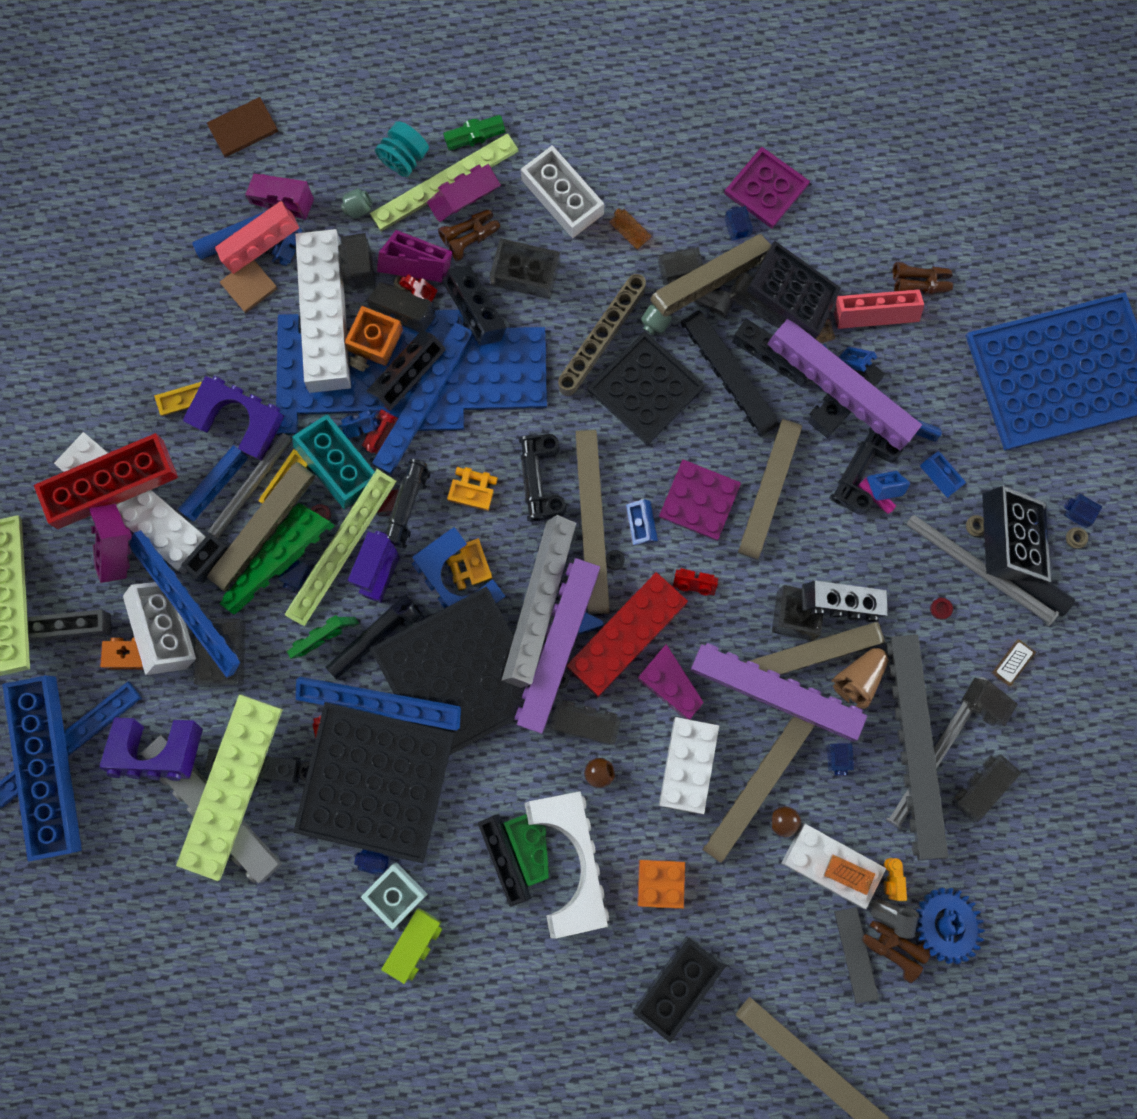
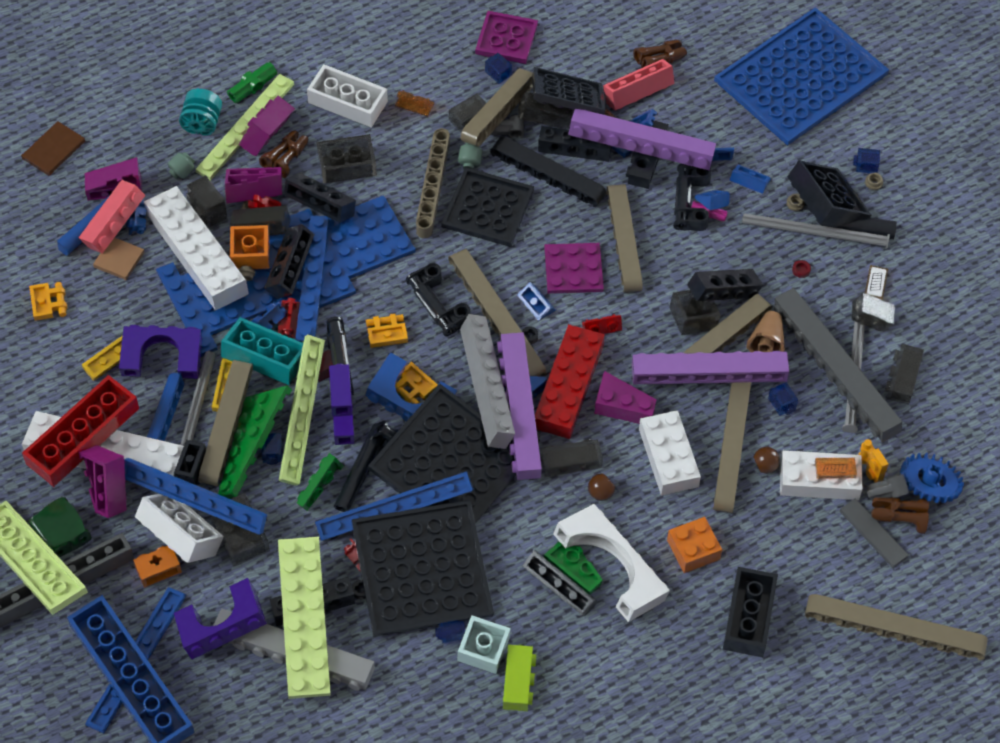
camera: 30 degrees left, 20 degrees down
(50, 571) = (60, 527): none -> dark green piece
(151, 303) = (41, 300): none -> light orange plate

